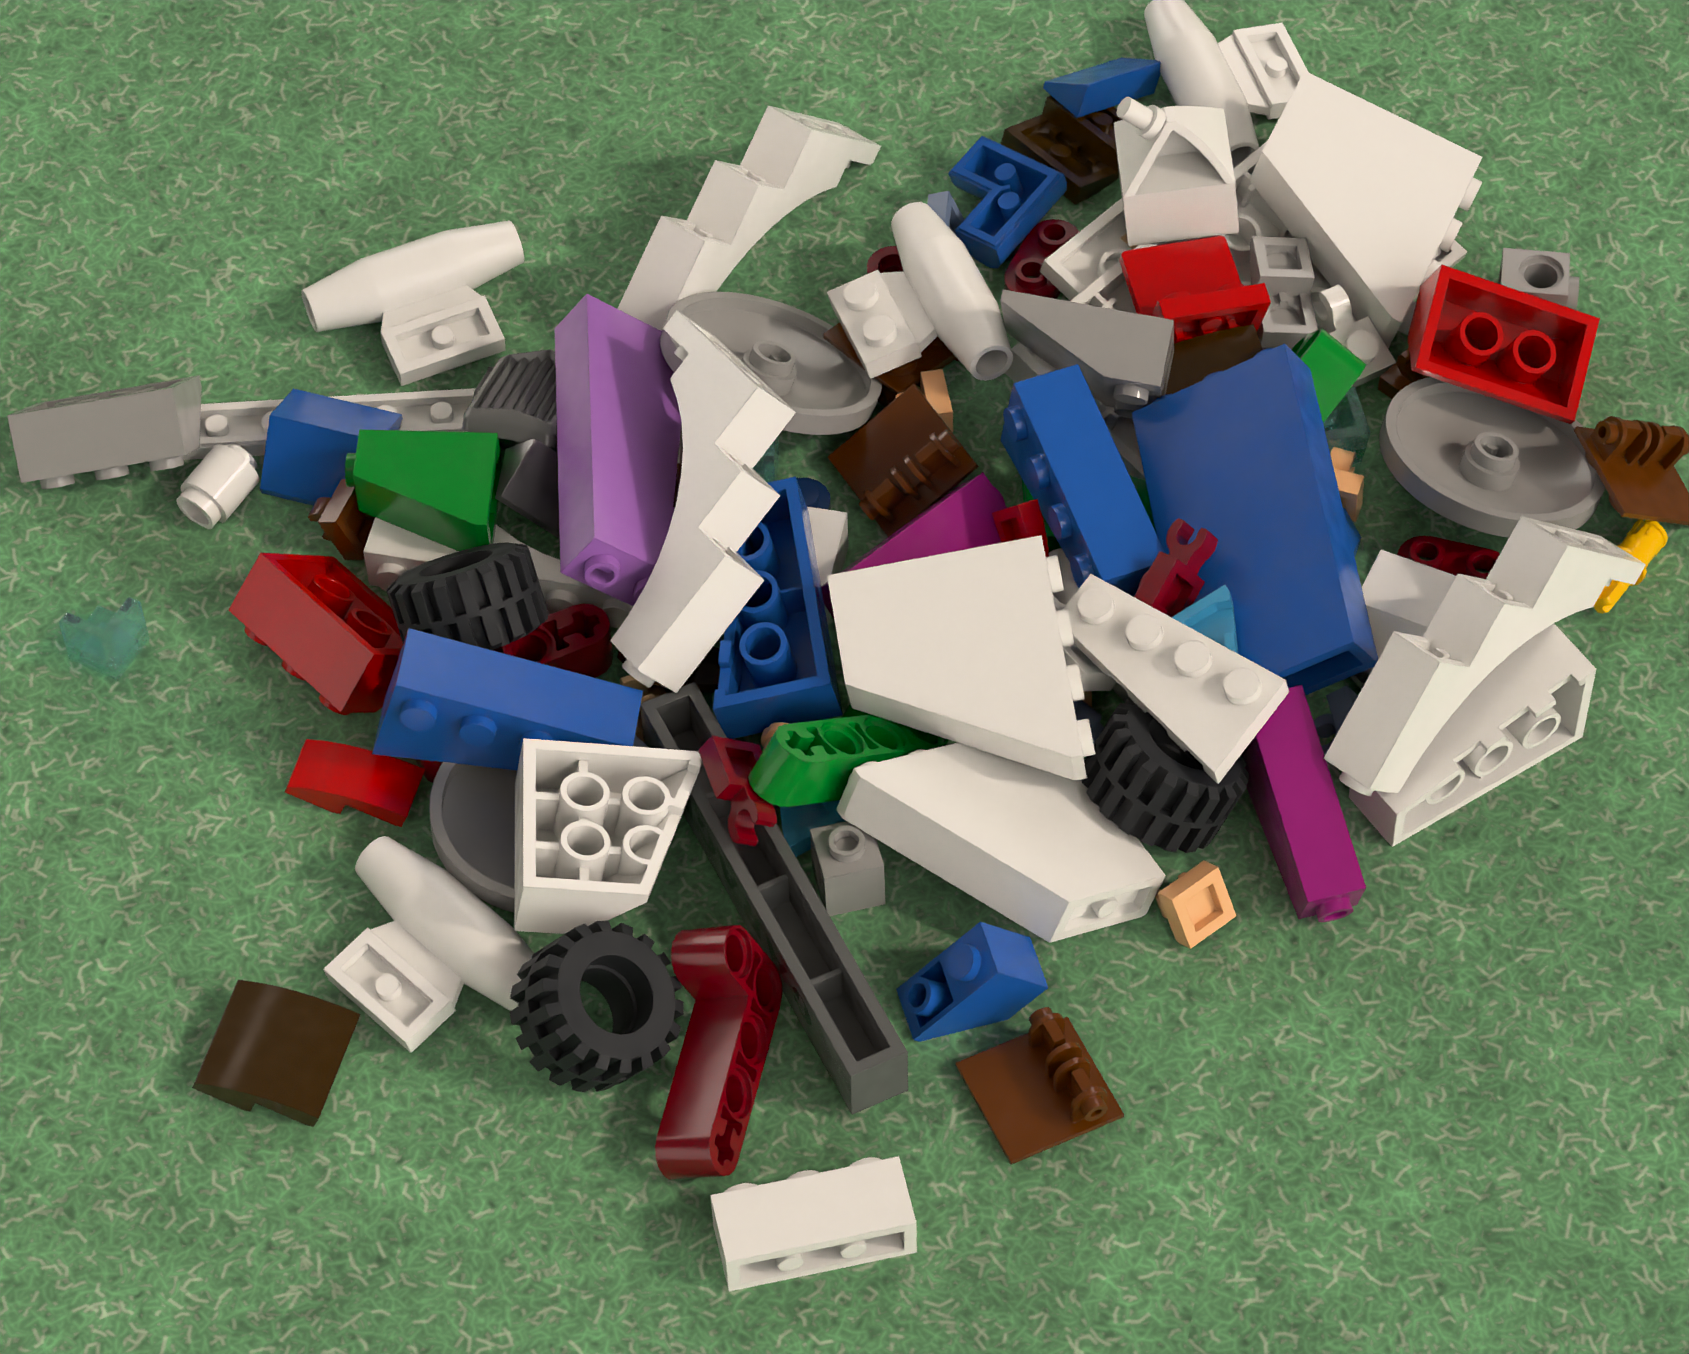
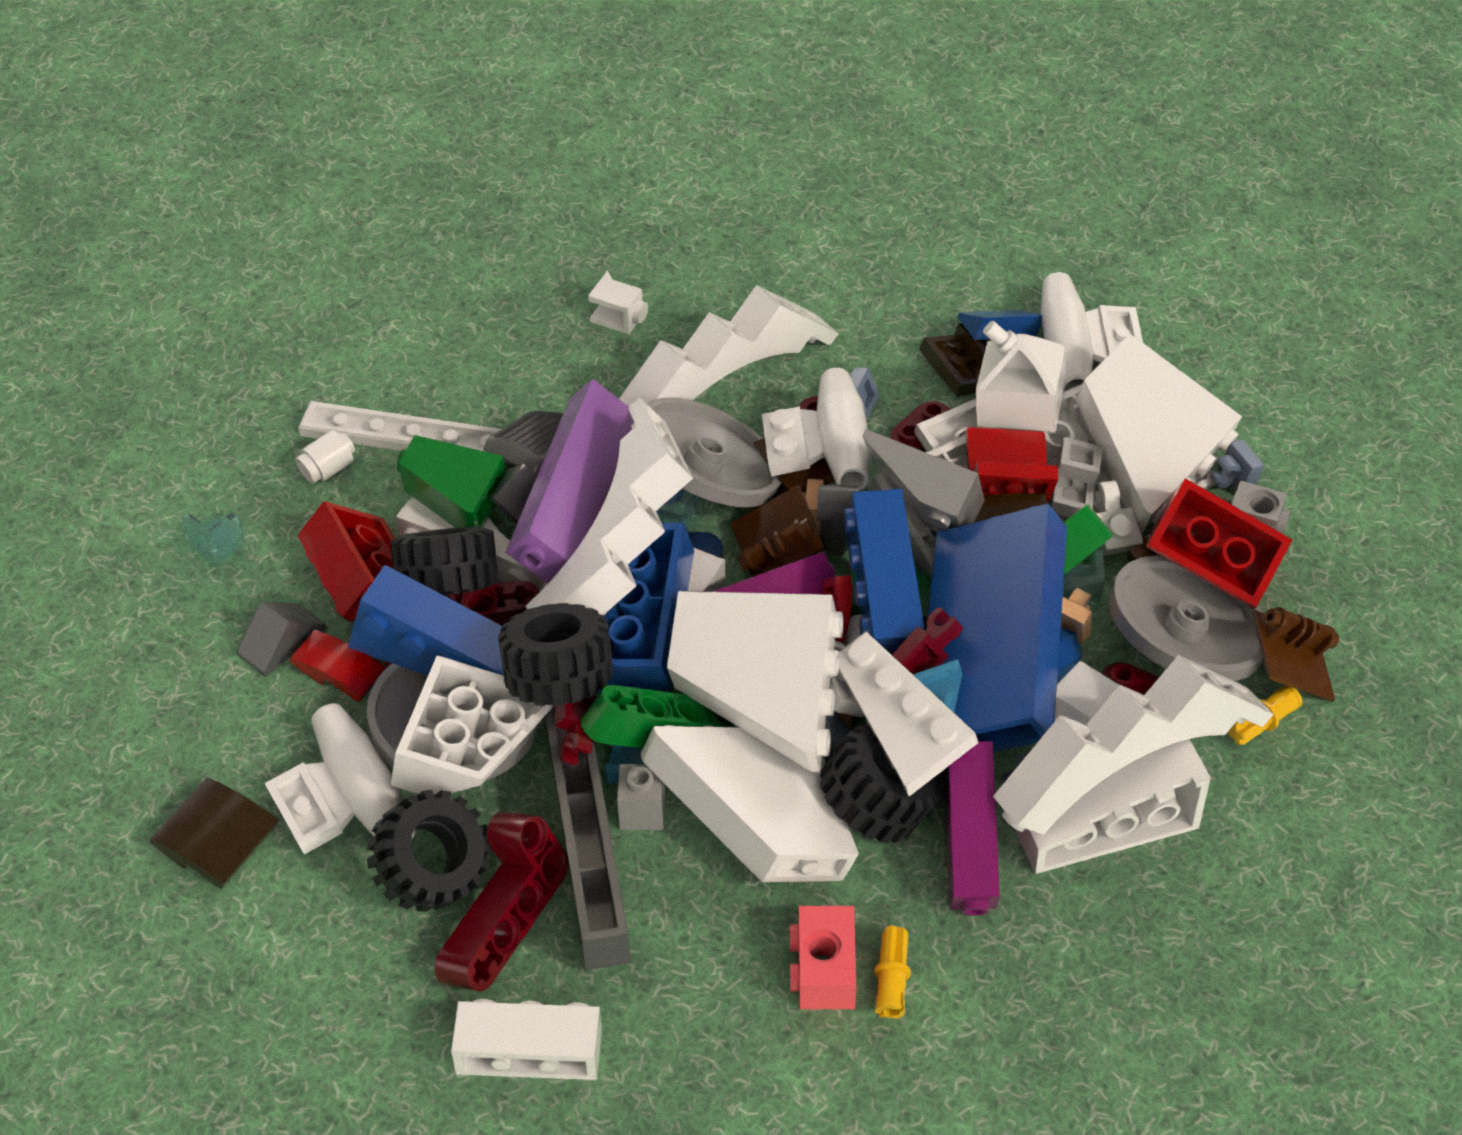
camera: 15 degrees right, 5 degrees down
(107, 432) = (266, 408): light grey slope -> none
(252, 759) = (277, 634): none -> dark grey slope
(310, 443) = (385, 436): blue slope -> none
(343, 521) = (392, 495): reddish brown tile -> none
(423, 298) = (501, 366): white plate -> none
(554, 169) = (618, 303): none -> white window
(691, 699) = (556, 654): none -> black tyre
(972, 983) = (700, 898): blue slope -> none
(978, 415) = (830, 511): none -> dark grey piece
(1013, 195) = (912, 382): blue brick -> none
(1039, 1088) = (723, 983): reddish brown hinge -> none
(1165, 989) = (827, 933): none -> coral brick
(1196, 904) = (877, 880): light nougat tile -> none
(1255, 1020) = (892, 973): none -> yellow axle
(1491, 227) = (1238, 465): none -> sand blue tile

